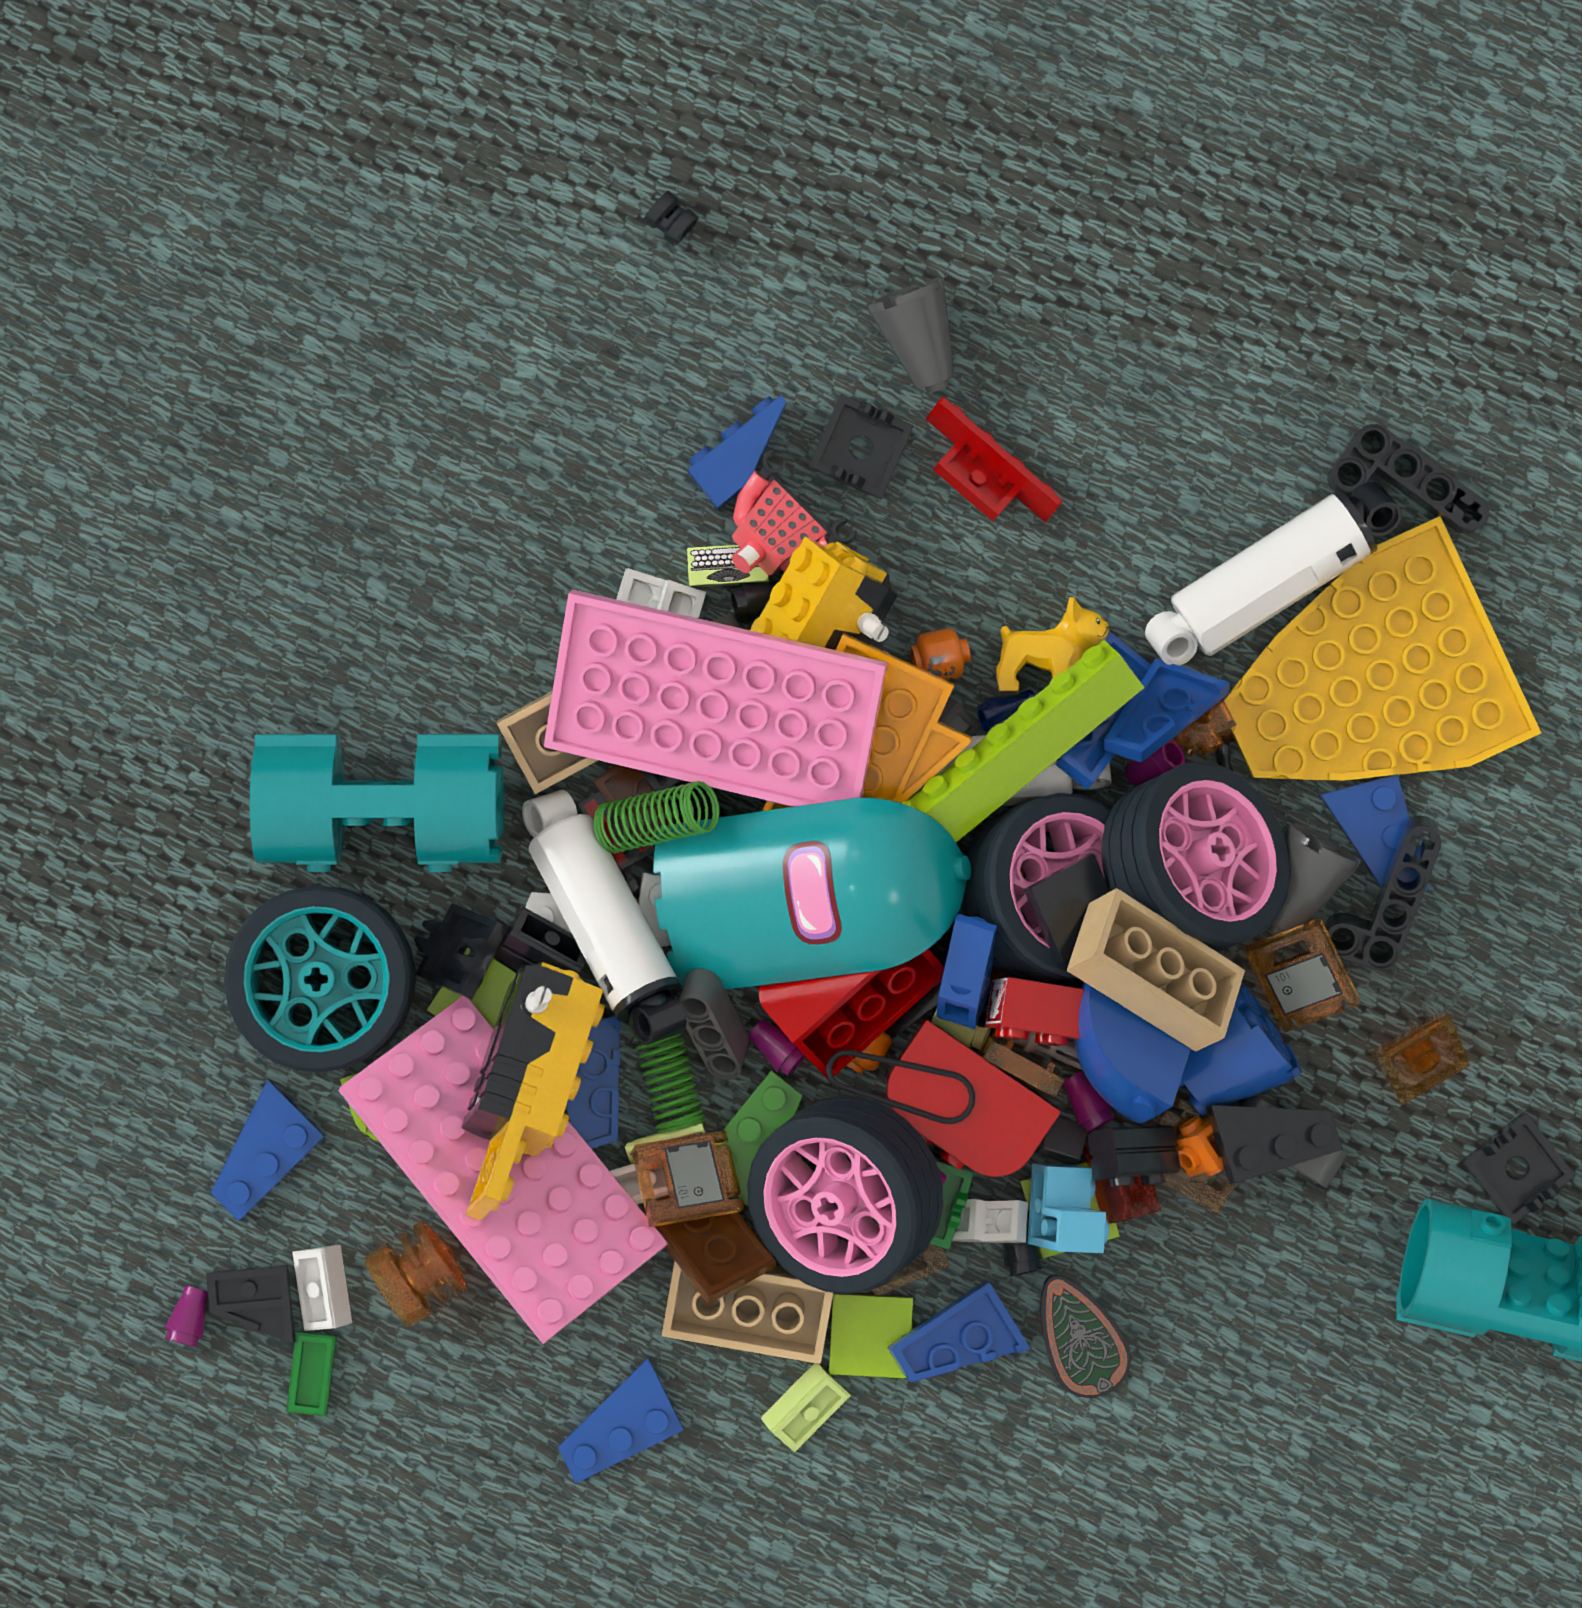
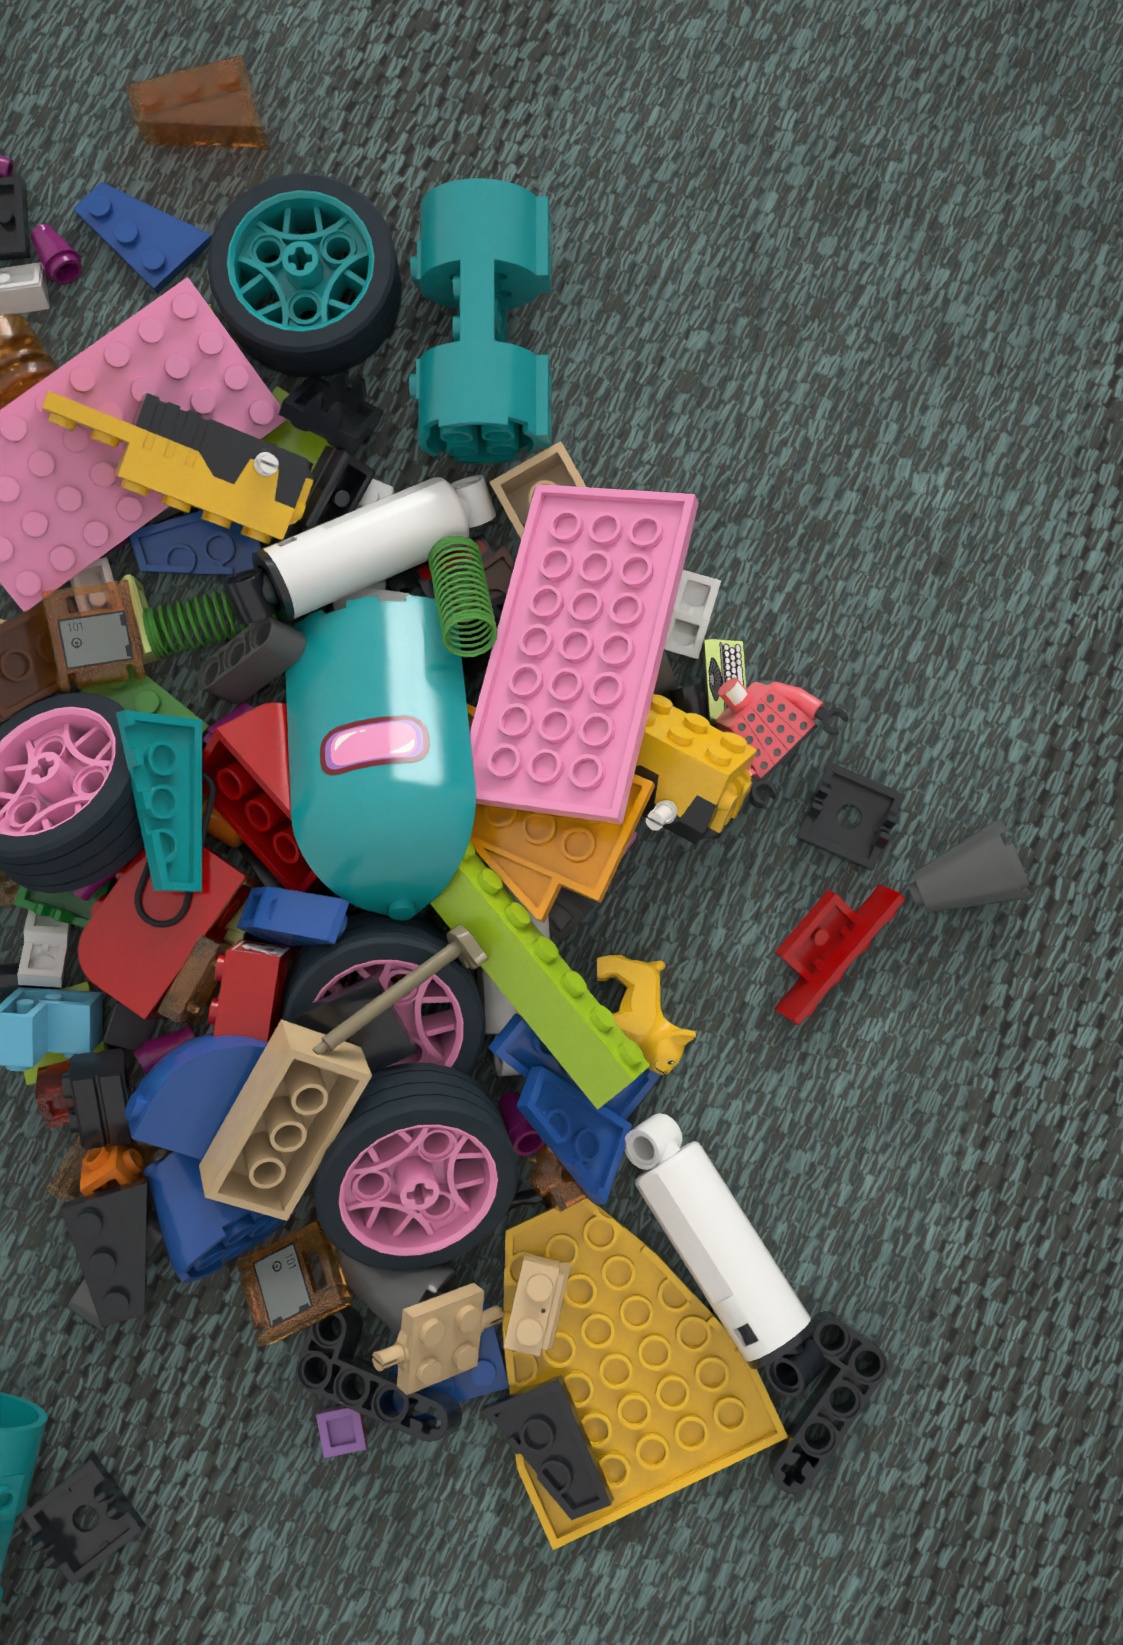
camera: 95 degrees right, 5 degrees down
(134, 1090) = (200, 107): none -> clear orange wedge
(288, 1236) = (56, 255): none -> magenta cone
(671, 218) = (1081, 622): black wheel -> none
(731, 463) = (828, 677): blue slope -> none
(849, 1089) = (167, 792): none -> teal wing
(941, 653) = (634, 897): orange head -> none
(996, 812) = (460, 945): none -> dark tan piece
(1000, 708) = (580, 960): clear blue cone -> none
(1320, 746) = (537, 1304): none -> tan window
(1350, 834) = (439, 1338): none -> tan plate
(1421, 1057) = (208, 1412): clear orange slope -> none
(1436, 929) = (341, 1431): none -> medium lavender plate
(1444, 731) = (552, 1439): none -> black wing

